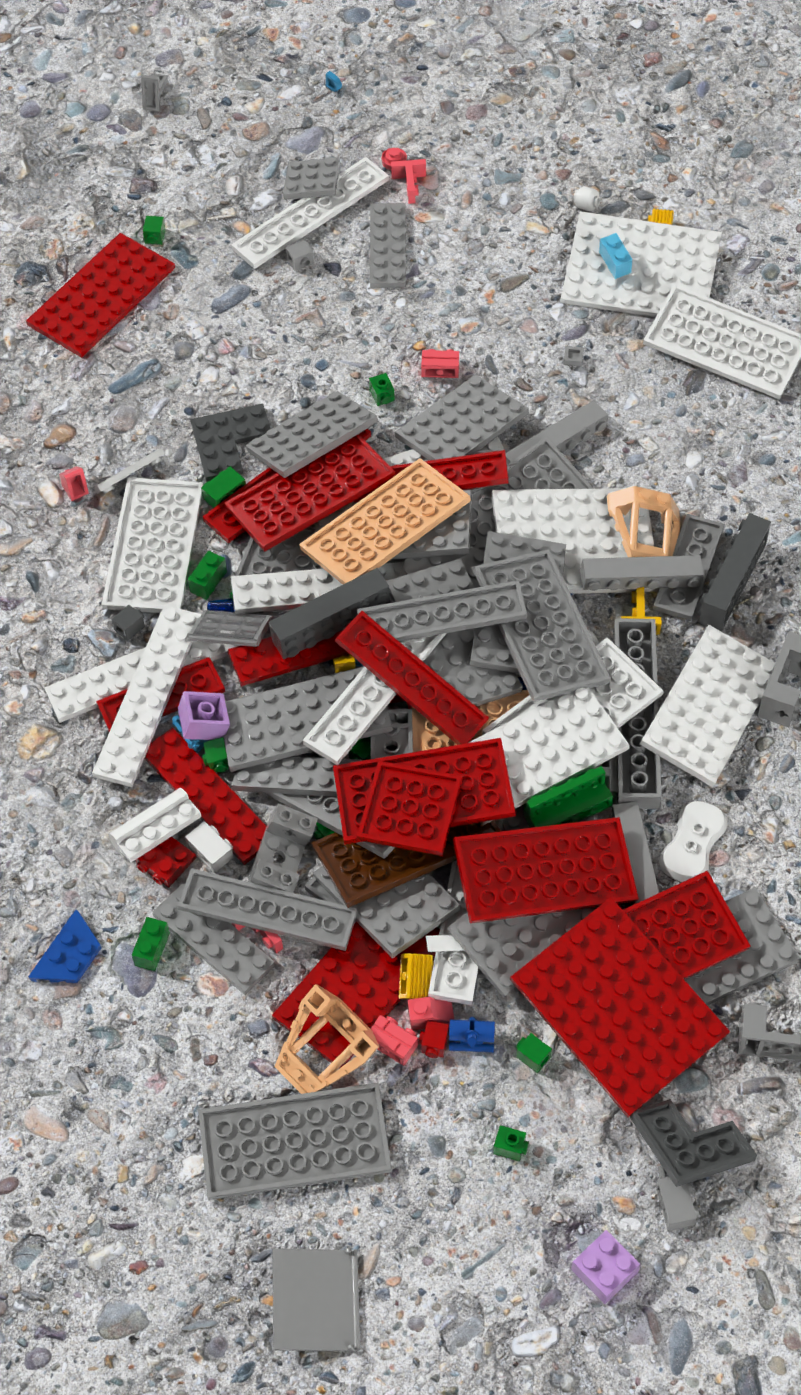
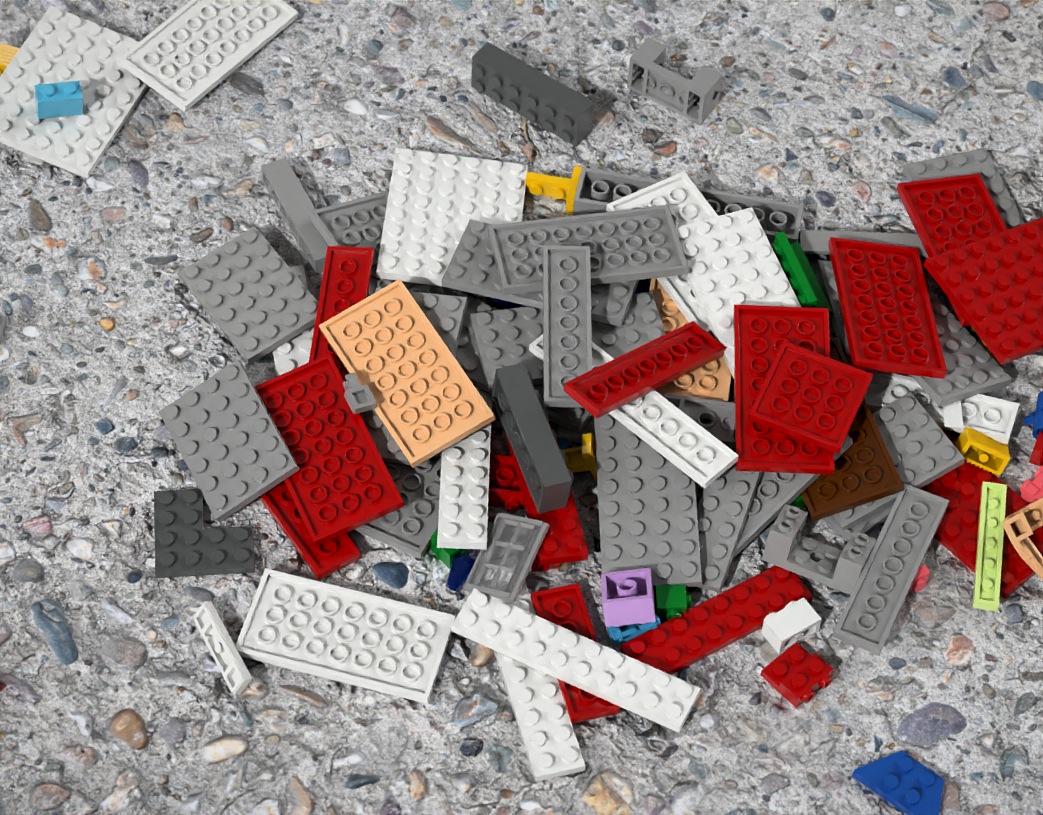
camera: 85 degrees left, 5 degrees down
(74, 483) = (224, 708): coral slope -> none
(128, 622) = (463, 670): dark grey brick -> none
(150, 944) = (910, 696): green brick -> none
(154, 825) = (760, 672): white brick -> none
(207, 575) = (410, 580): green brick -> none
(216, 943) = (913, 636): light grey plate -> none
(222, 486) = (279, 547): green brick -> none
(294, 990) = (989, 546): none -> yellowish green plate
(351, 495) = (358, 397): none -> light grey plate
(381, 389) = (173, 365): green brick -> none
(429, 1009) = (1022, 456): coral slope -> none
(440, 363) = (151, 302): coral brick -> none
(573, 356) = (180, 177): light grey plate -> none
(633, 498) = (431, 138): light nougat windscreen -> none
(641, 572) = (519, 167): light grey brick -> none
(689, 851) = (854, 212): white plate -> none
(696, 537) = (505, 135): light grey plate -> none
(709, 706) = (688, 143): white plate -> none

